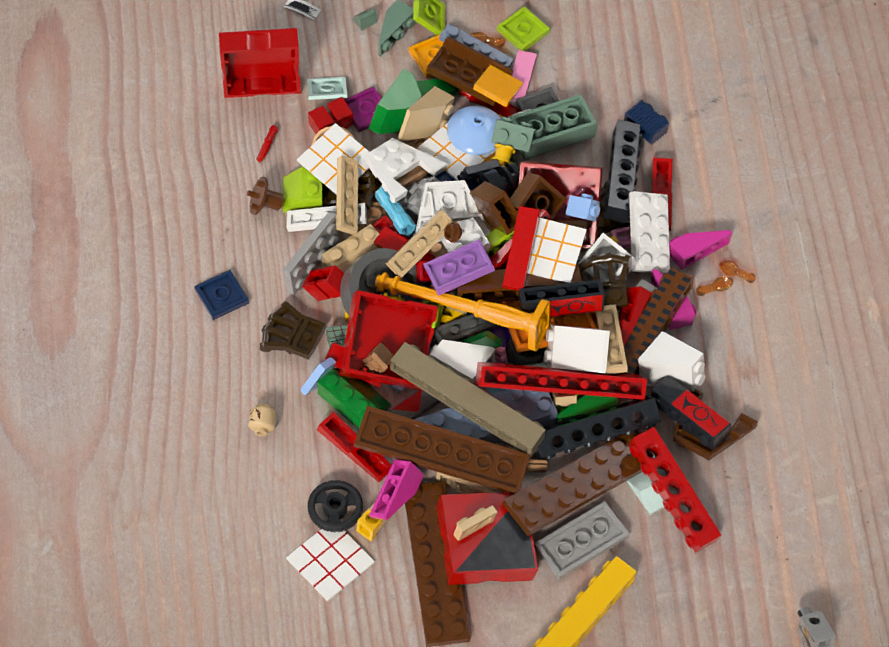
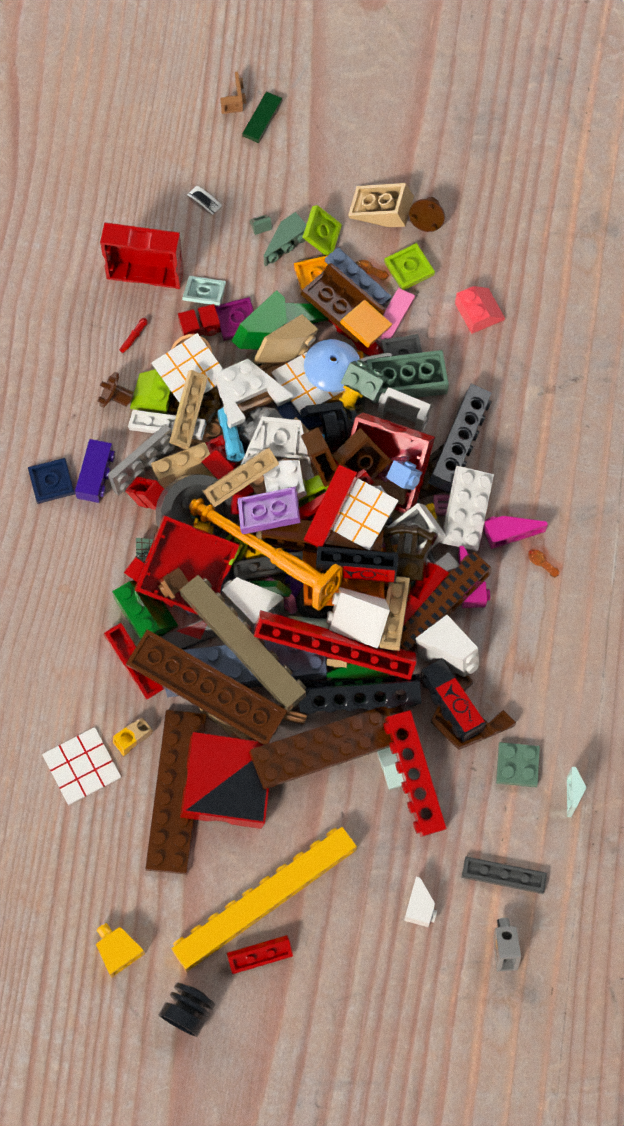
camera: 15 degrees right, 10 degrees up
(262, 419) = (54, 615): tan head -> none
(265, 276) = (94, 471): none -> dark purple brick
(303, 338) = (113, 542): dark brown plate -> none
(321, 370) = (114, 584): light blue tile -> none
(334, 524) = (92, 732): black wheel -> none
(397, 489) = (156, 715): dark pink slope -> none
(453, 232) = (273, 473): reddish brown plate -> none
(480, 519) = (223, 764): tan plate -> none
(559, 151) = (405, 407): none -> white panel
(581, 540) = (316, 801): light grey plate -> none
(601, 54) = (478, 308): none -> coral slope
(651, 123) = (503, 394): dark blue brick -> none
(662, 181) = (496, 459): red slope -> none
(716, 615) = (420, 906): none -> white slope
(720, 284) = (522, 573): clear orange piece -> none
(771, 463) = (517, 764): none -> sand green plate
(790, 570) = (504, 875): none -> dark grey tile
(836, 471) = (575, 790): none -> light aqua slope

